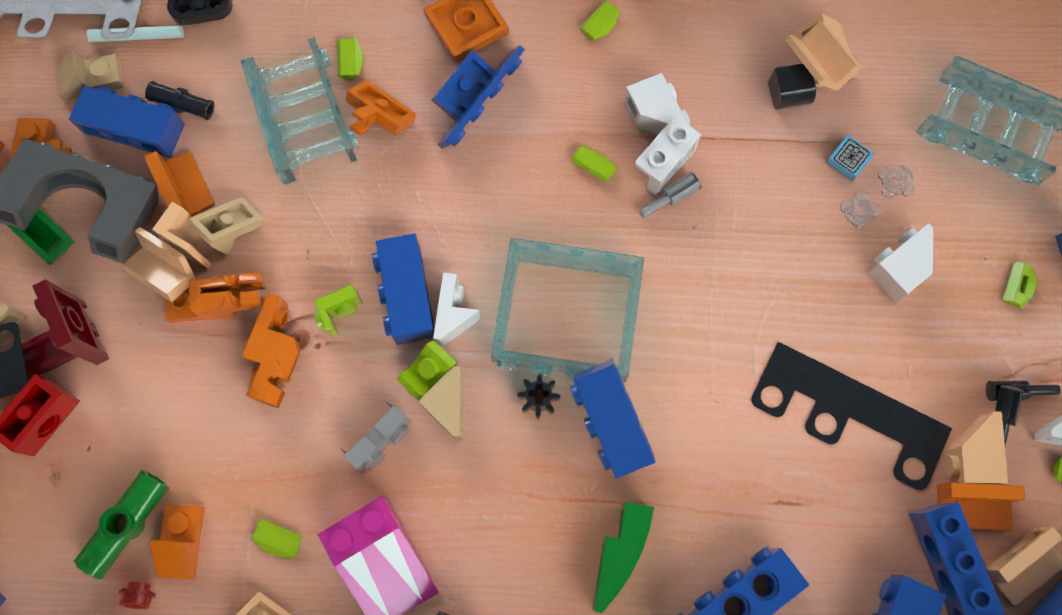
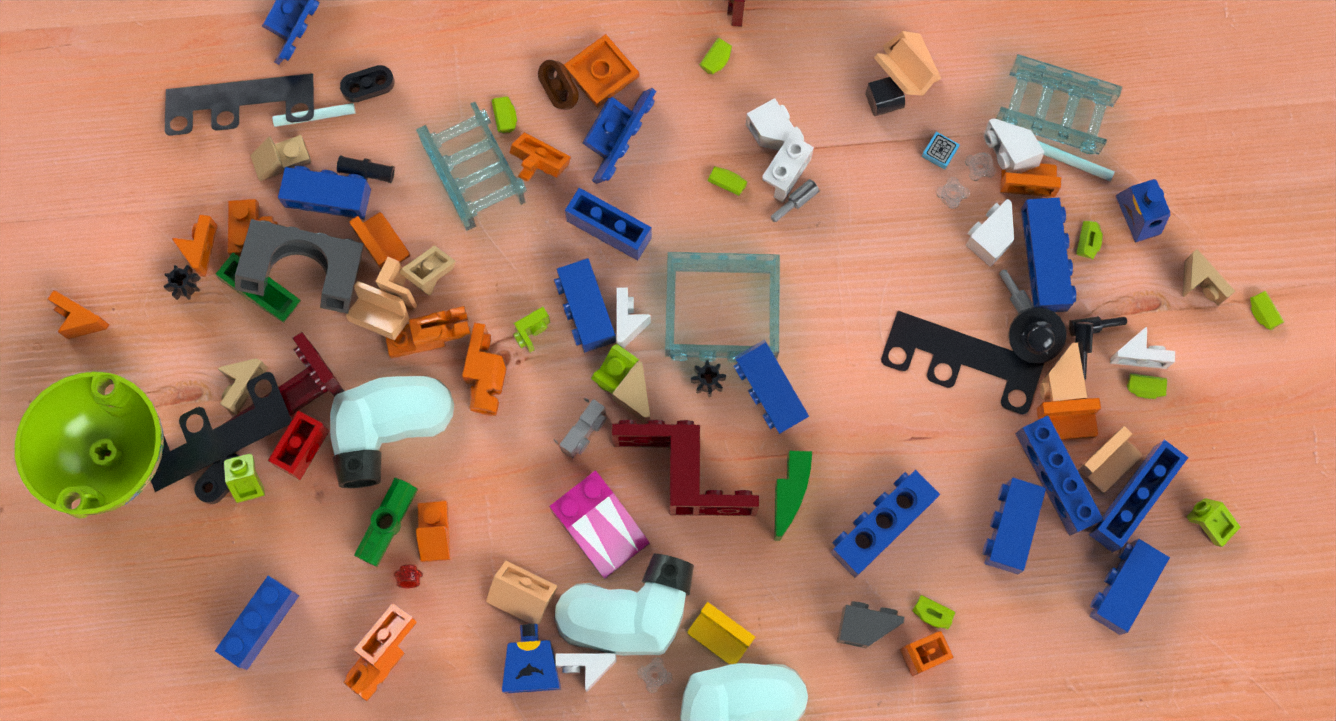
camera: 10 degrees left, 0 degrees up
(140, 388) = (383, 413): none -> light aqua piece
(276, 539) = (512, 519): lime piece -> none
(414, 35) = (559, 86): none -> reddish brown plate
(446, 195) = (608, 224): none -> blue brick
(490, 506) = (684, 468): none -> dark red bracket
(929, 346) = (1018, 298): none -> light grey axle
(940, 162) = (1014, 146): none -> white slope
(949, 394) = (1037, 335): none -> black plate
(954, 204) = (1036, 181): none -> orange panel
(969, 298) = (1047, 254): none -> blue brick
(1009, 189) = (1077, 162): none -> light aqua bar

